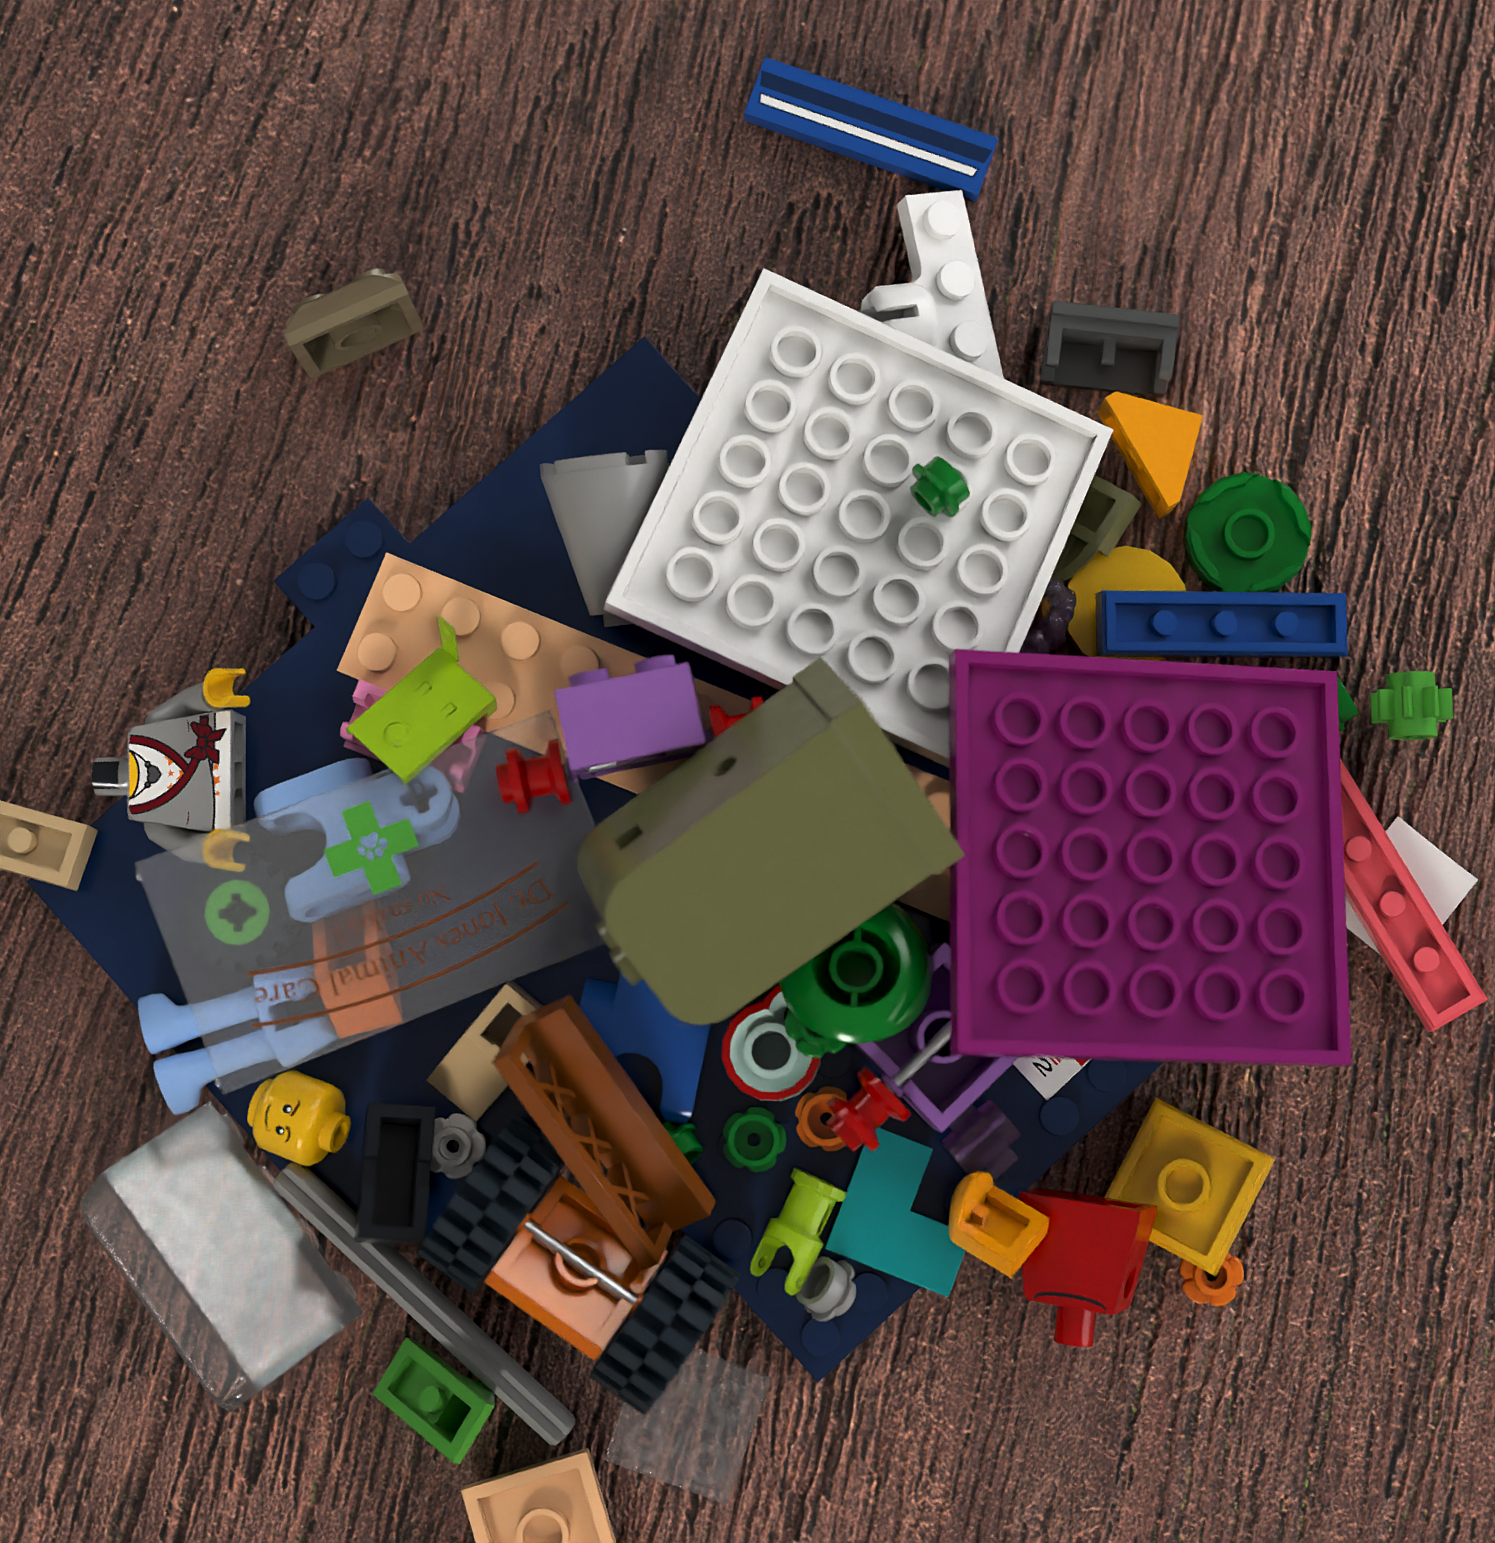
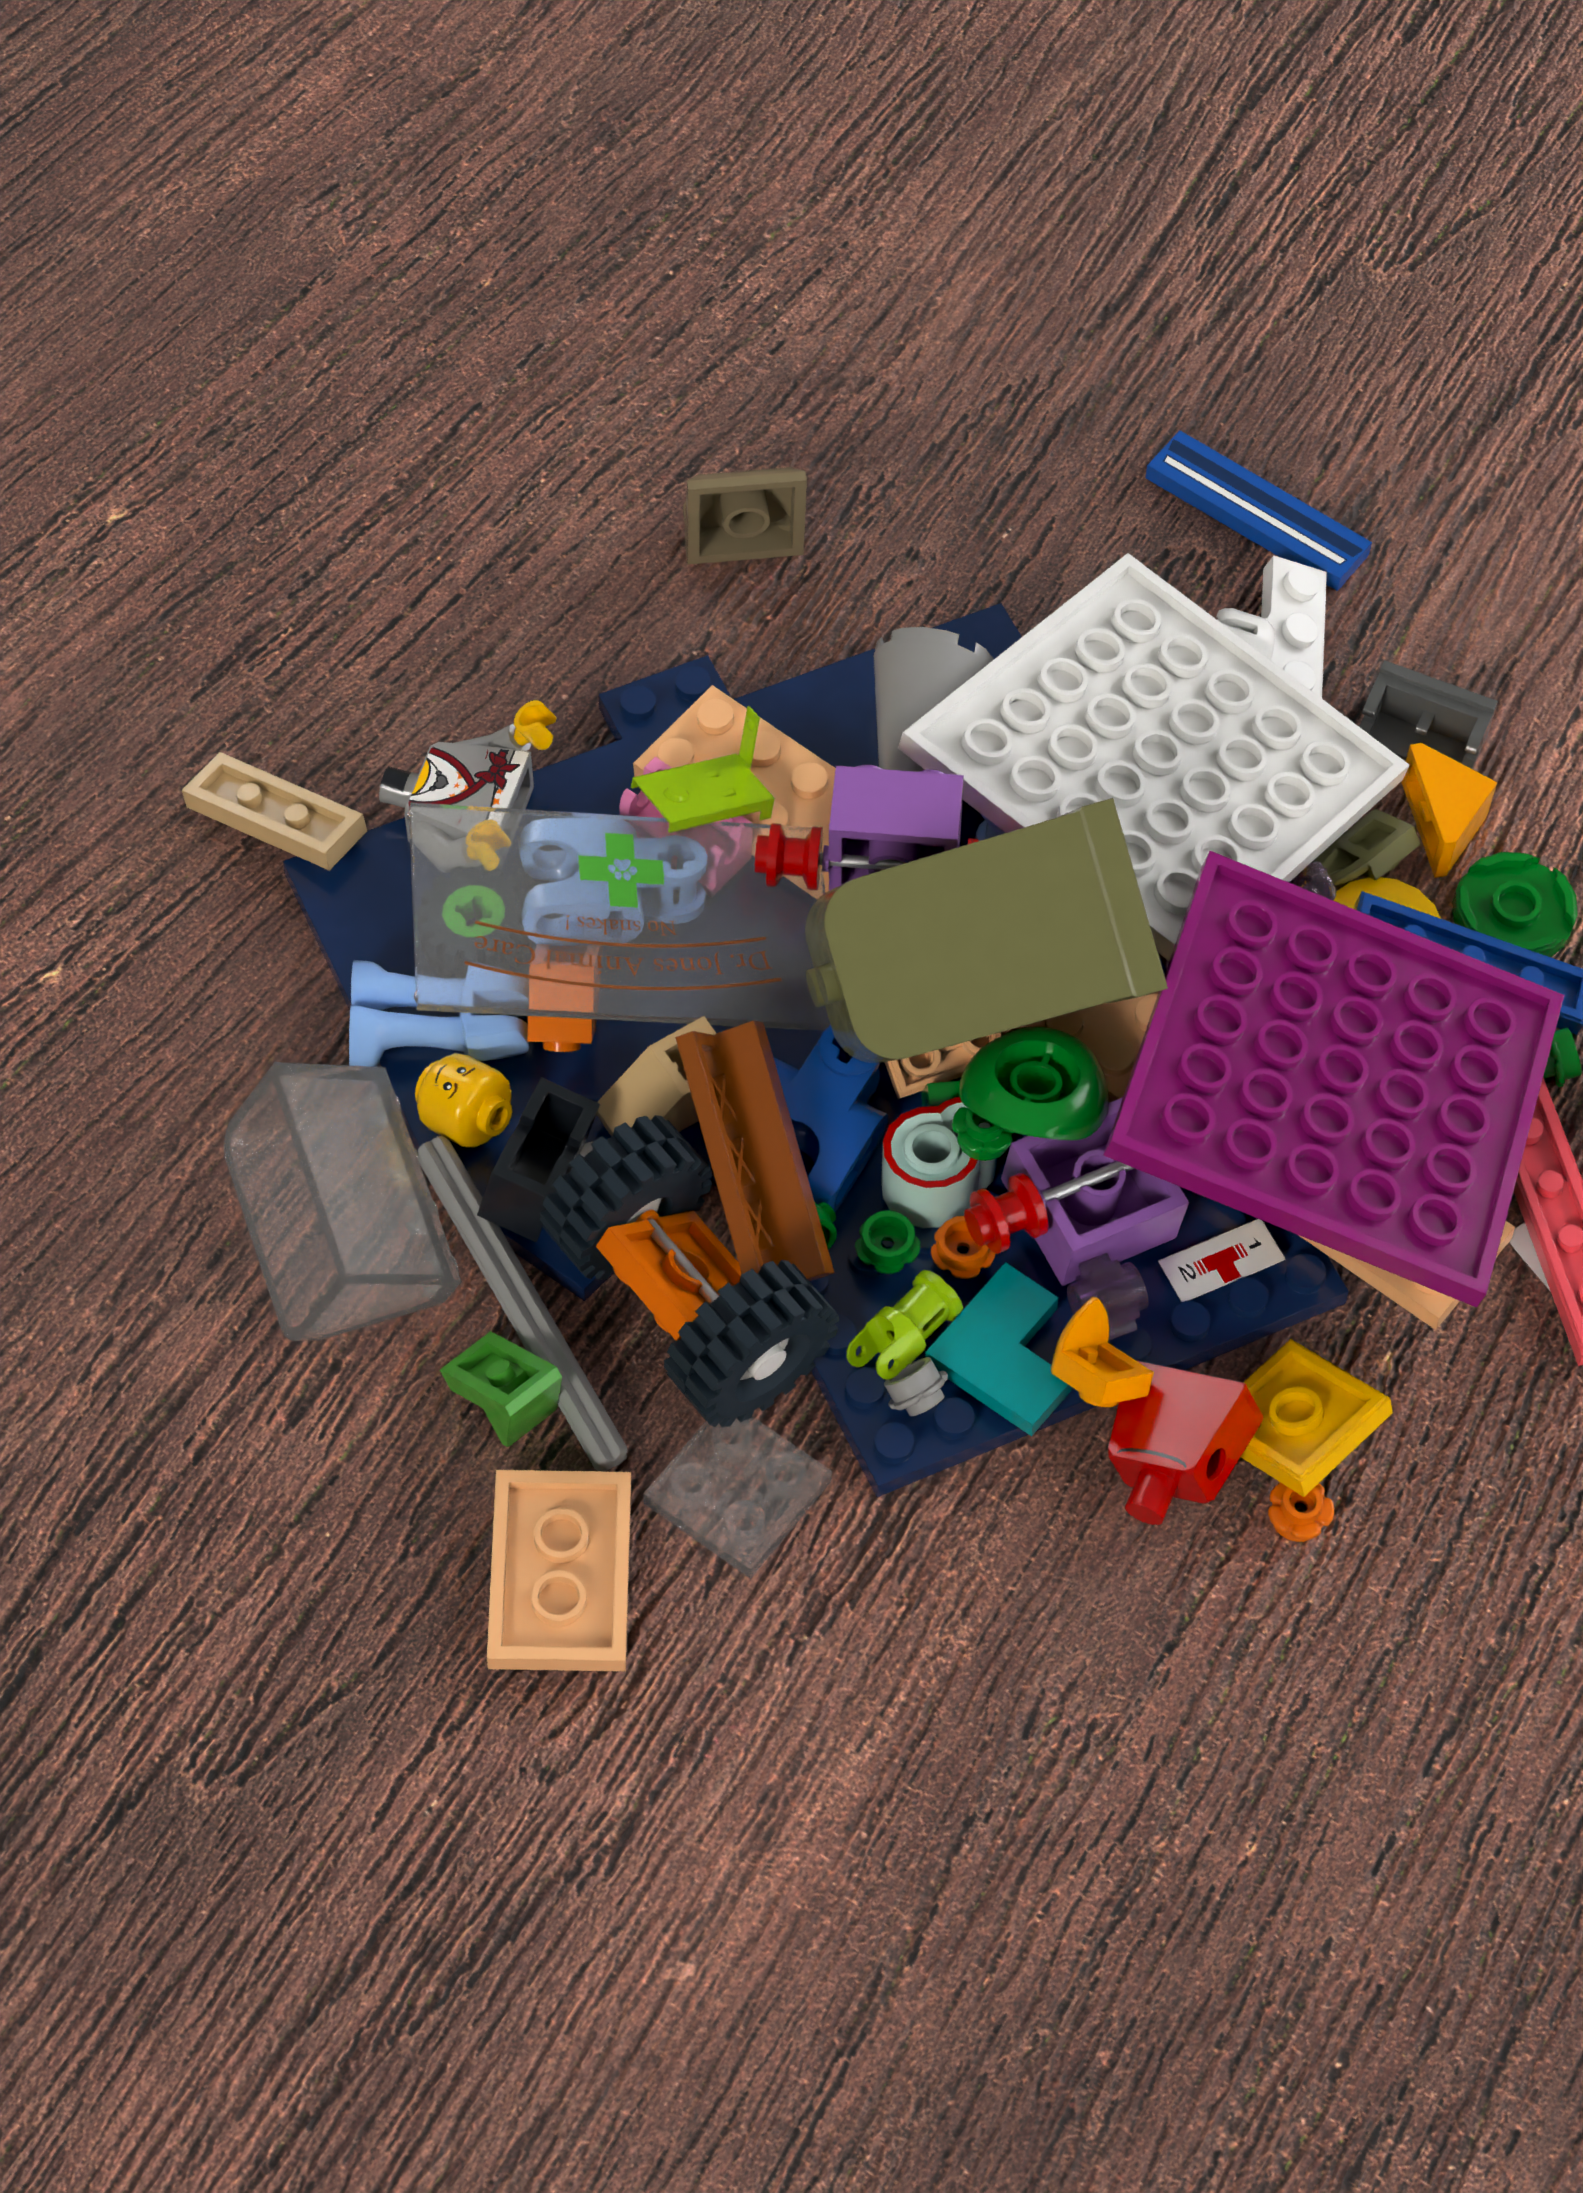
camera: 15 degrees right, 25 degrees down
(938, 487) = (1233, 742): green plate -> none

